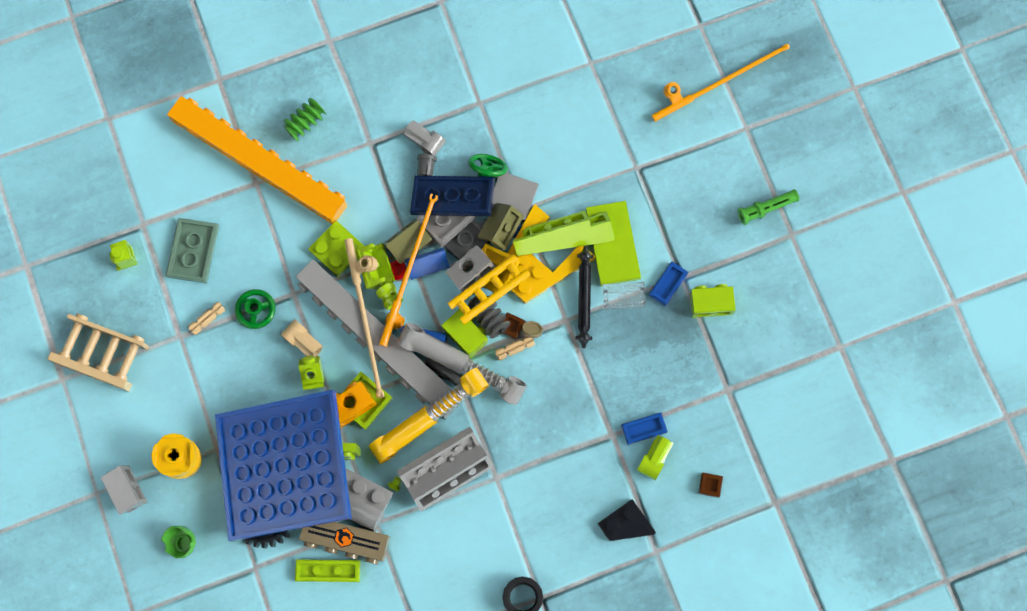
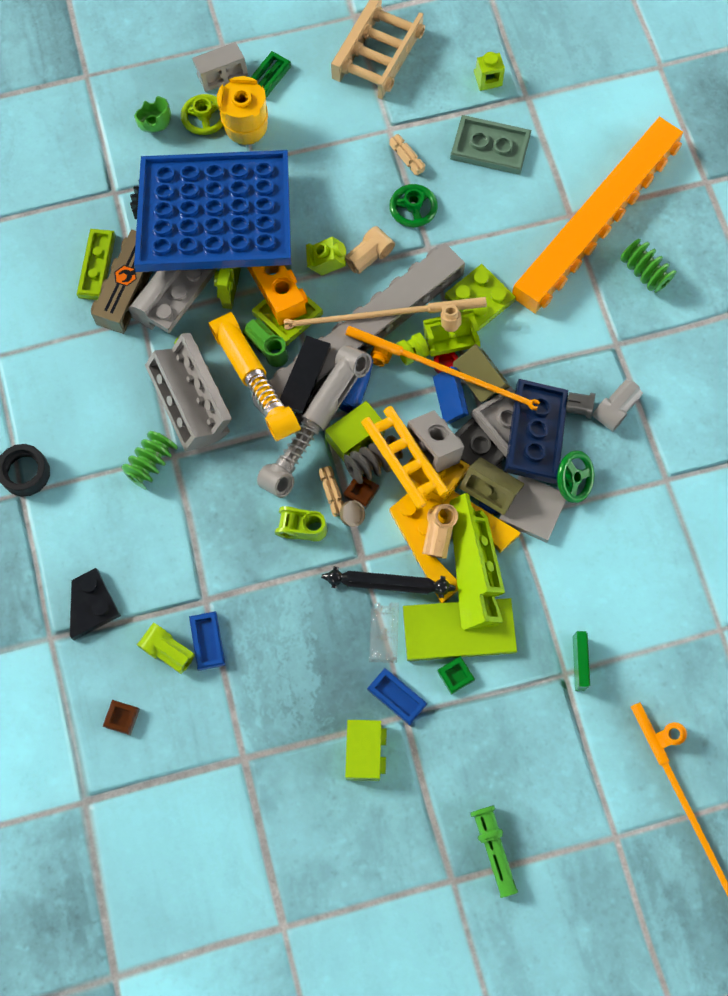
camera: 95 degrees right, 5 degrees down
(144, 455) = (274, 74): none -> green tile
(166, 493) = (202, 109): none -> lime piece
(390, 415) = (266, 342): none -> bright green piece
(424, 374) = (305, 374): none -> black tile
(504, 494) = (147, 458): none -> bright green piece
(542, 260) = (439, 534): none -> tan piece
(545, 369) = (295, 524): none -> lime piece
(628, 155) = (581, 660): none -> green tile
(647, 243) = (455, 675): none -> green tile

